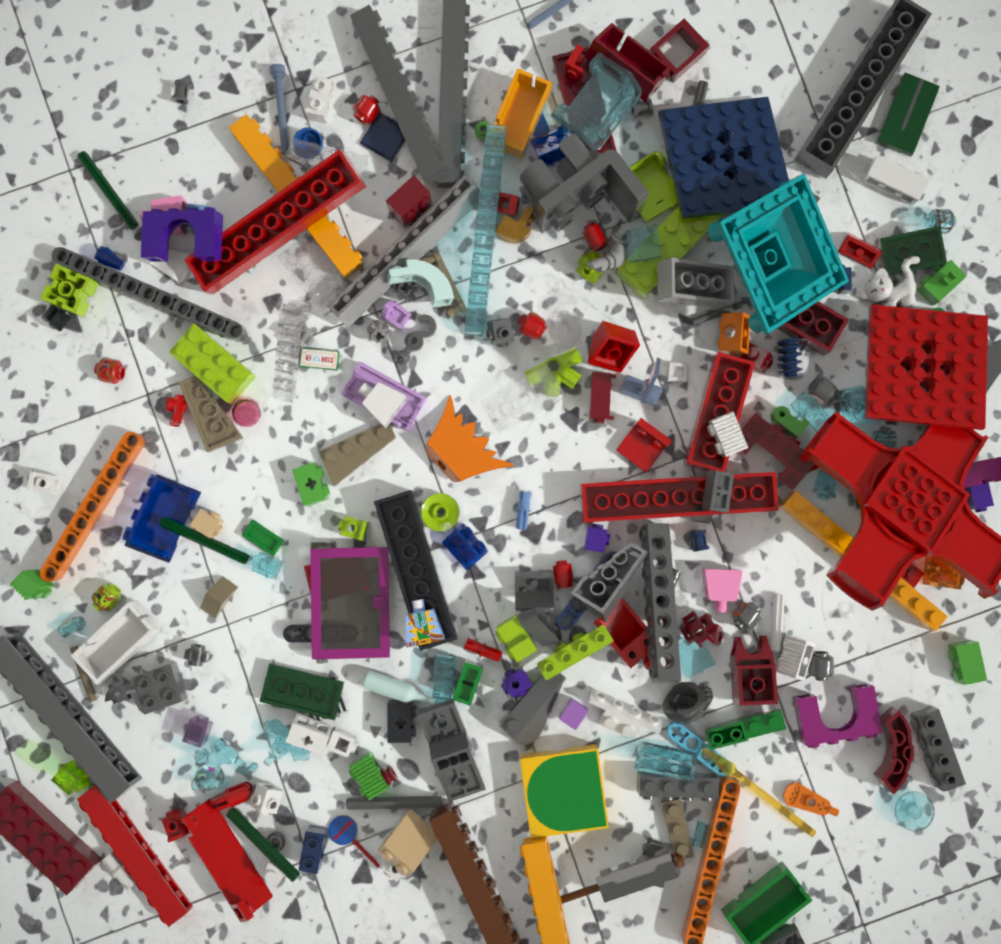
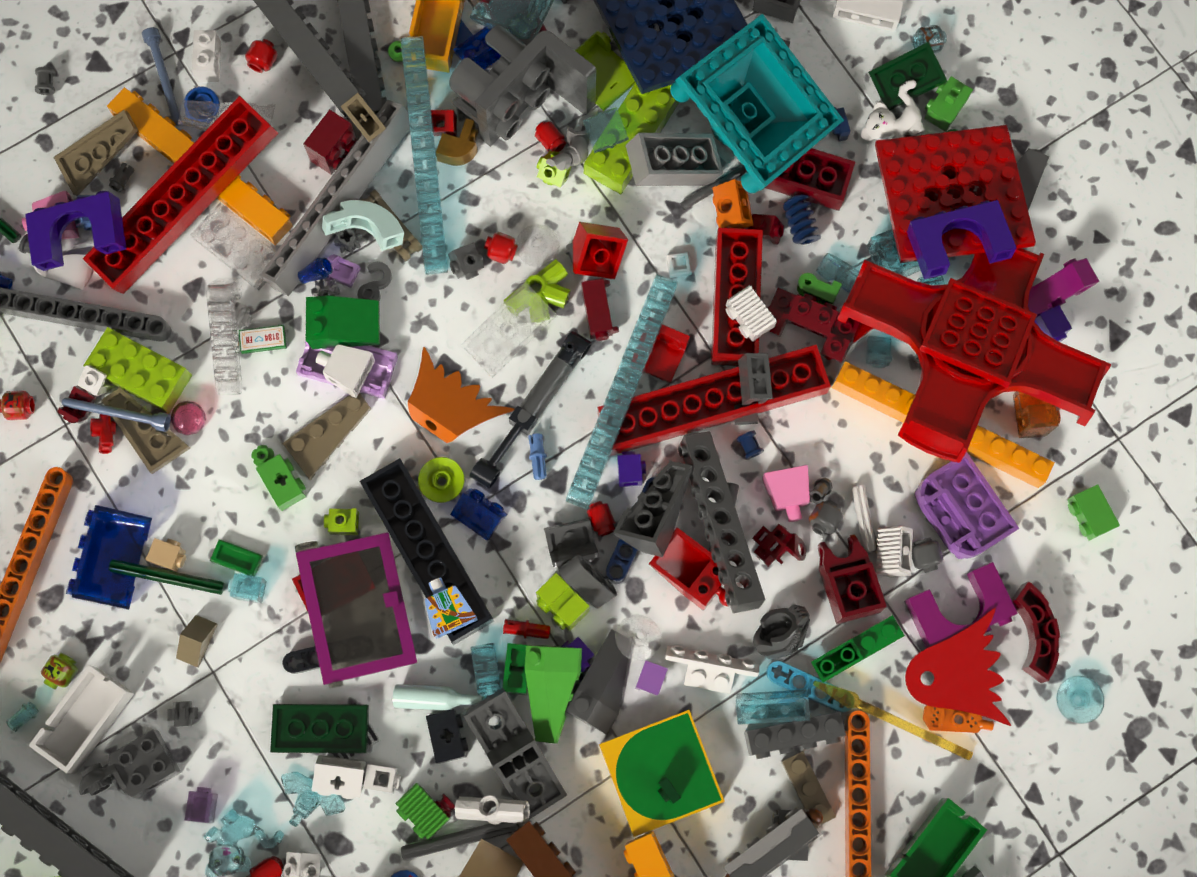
camera: 20 degrees left, 10 degrees down
(85, 680) = (48, 774): dark tan bar -> none
(158, 382) = (75, 415): none -> dark red bracket
(175, 367) = (94, 381): none -> white bracket
(210, 165) = (90, 154): none -> dark tan wing
(222, 412) = (160, 421): none -> sand blue piece
(231, 190) = (121, 177): none -> dark grey pin
(300, 453) = (262, 449): none -> bright green plate
(376, 312) = (316, 270): none -> clear blue cone
(384, 137) = (288, 82): dark blue piece -> none
(386, 362) = (341, 322): none -> green slope
(434, 793) = (478, 809): none -> white piece
(441, 188) = (363, 117): none -> dark tan slope
(492, 701) = (550, 683): none -> bright green wedge
(531, 465) = (526, 415): none -> piece
(565, 811) = (667, 791): none -> dark green plate
(572, 688) = (631, 645): none -> clear dish
(574, 651) = (632, 605): lime bracket -> none
(605, 476) = (621, 392): none -> clear light blue beam
(642, 390) = (636, 291): sand blue piece -> none
(694, 659) = (778, 581): clear light blue piece -> none
(700, 834) = (836, 793): clear light blue pin -> none
(749, 589) = (822, 488): none -> dark grey pin
(822, 390) = (848, 247): dark grey head -> none
(822, 768) = (959, 673): none -> red piece
(859, 250) = (850, 90): red slope -> none
(861, 637) = (964, 509): none -> medium lavender plate
(912, 575) = (999, 425): red bracket -> none
(937, 749) = (1086, 620): dark grey brick -> none
(947, 401) = (983, 220): none -> dark purple arch

